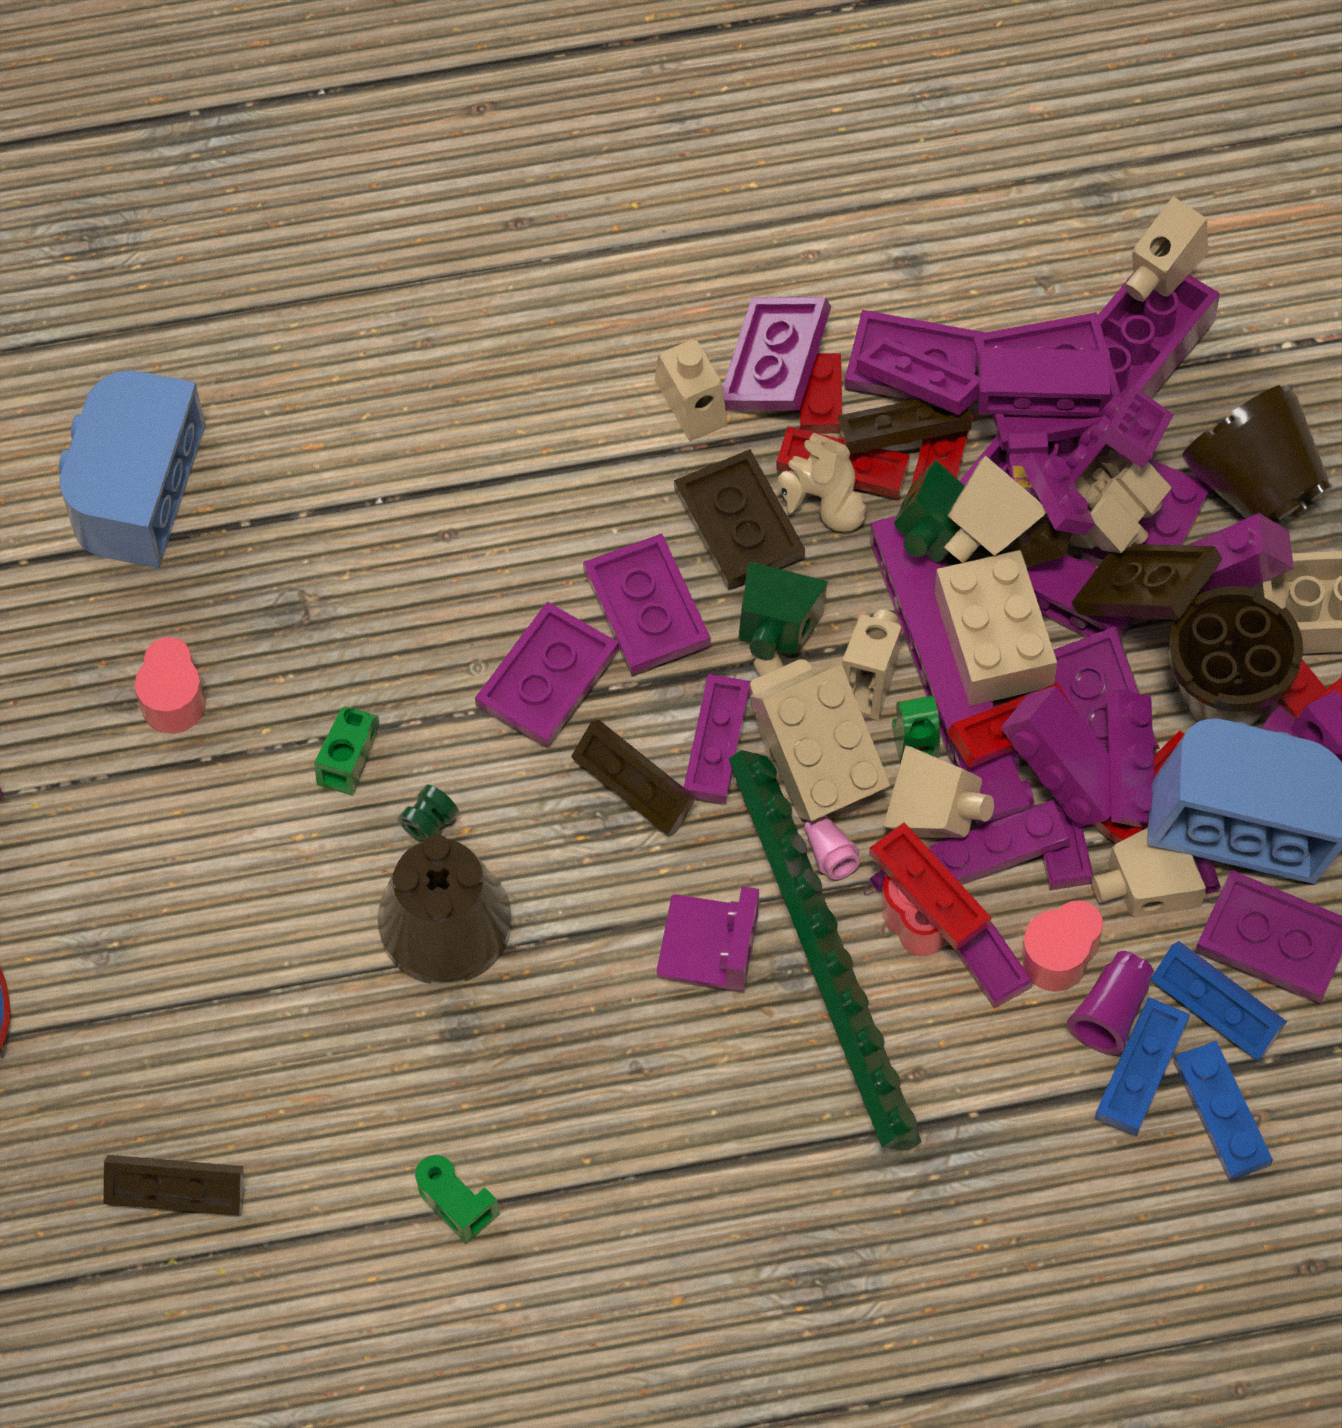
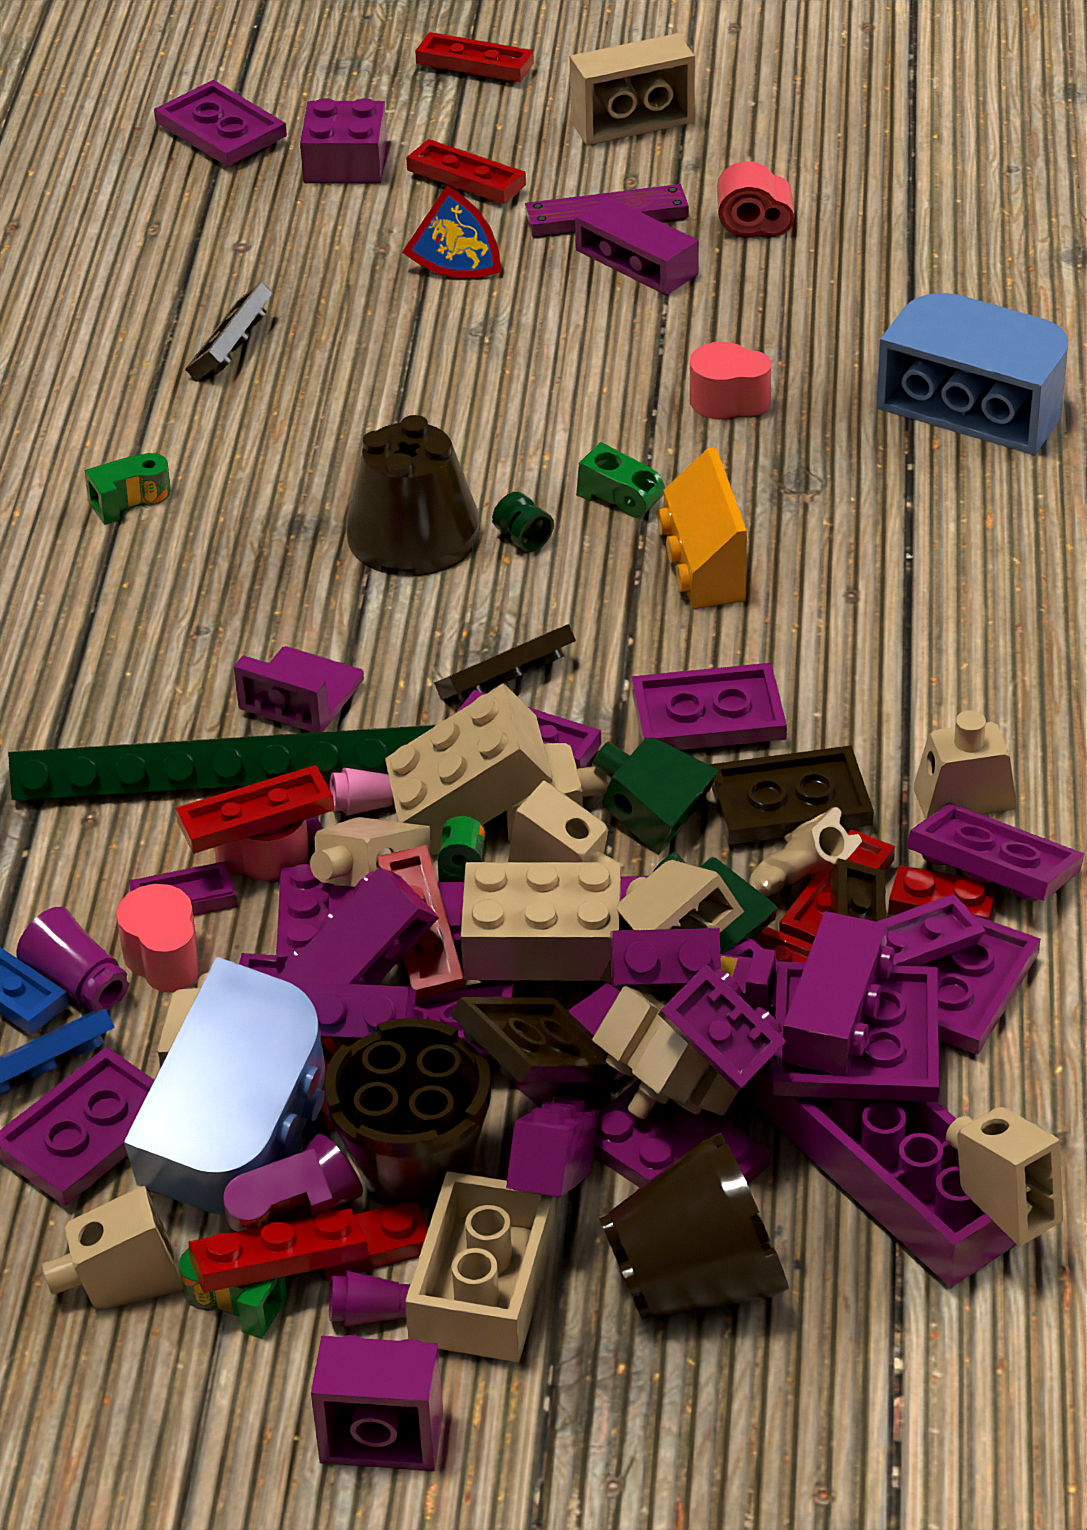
camera: 105 degrees right, 20 degrees down
(424, 644) = (705, 533): none -> light orange slope
(547, 674) = (651, 624): magenta plate -> none

